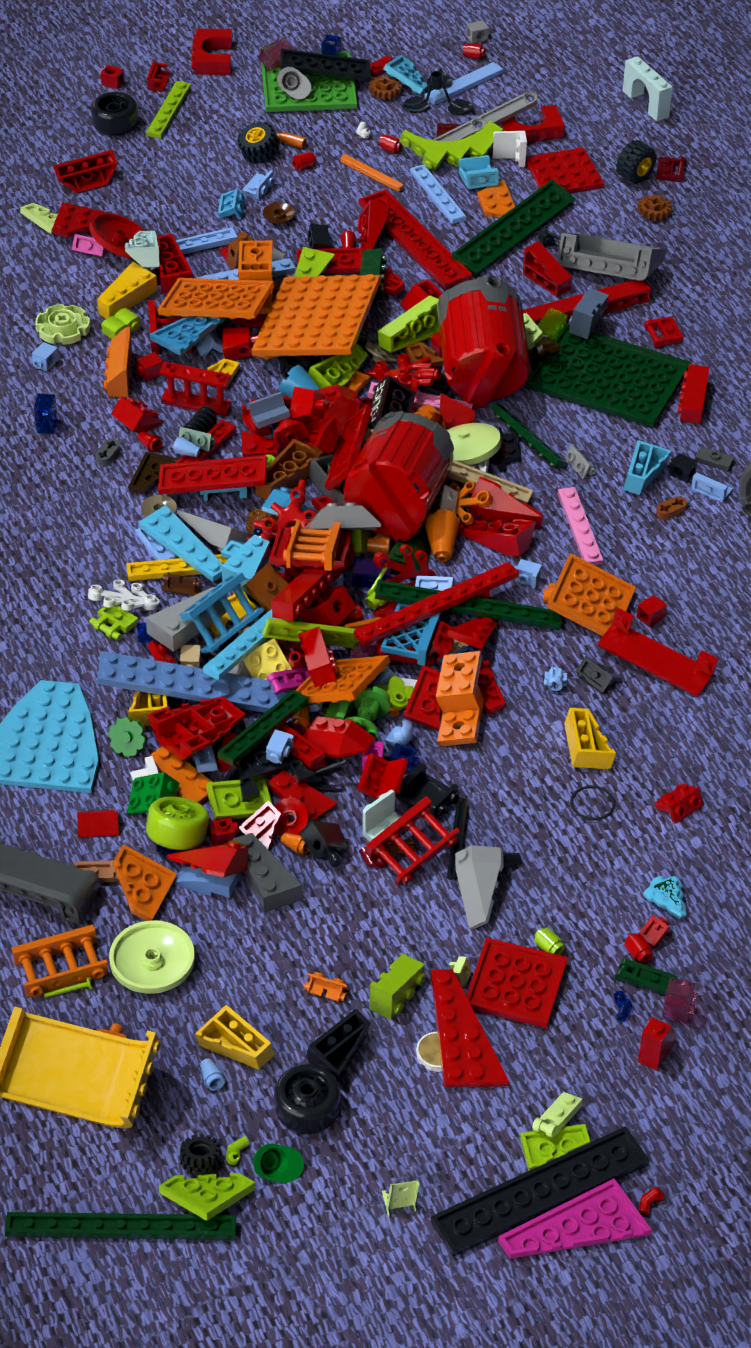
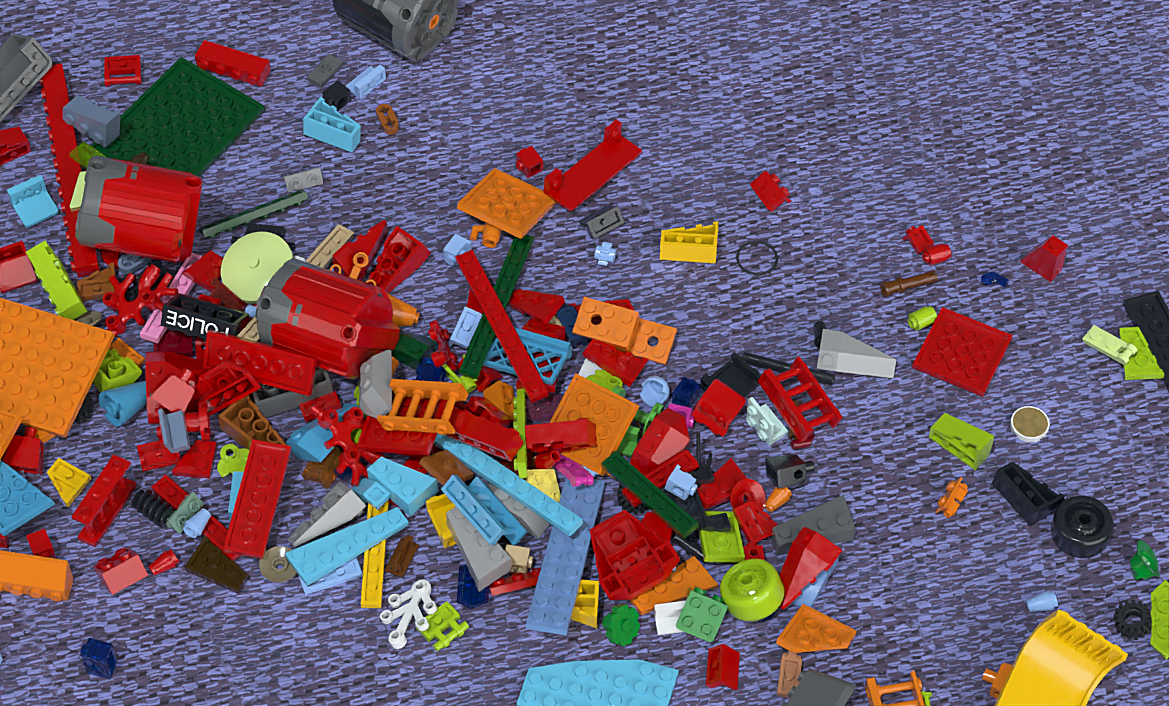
camera: 80 degrees left, 10 degrees up
(104, 450) = (166, 610): dark grey beam -> none
(151, 957) = (908, 633): yellowish green dish -> none
(234, 1149) = (1124, 595): lime arm -> none
(235, 1038) = (1008, 575): yellow wedge -> none
(427, 411) = (206, 291): orange plate -> none
(461, 969) = (948, 389): tile -> none
(463, 1045) = (1029, 400): red wing -> none
(580, 526) = (394, 197): bright pink plate -> none
(589, 921) = (900, 285): none -> reddish brown pin
(643, 976) = (967, 255): dark green plate -> none
(667, 894) = (879, 222): medium azure rock -> none
(679, 1001) = (1004, 233): clear pink brick -> none

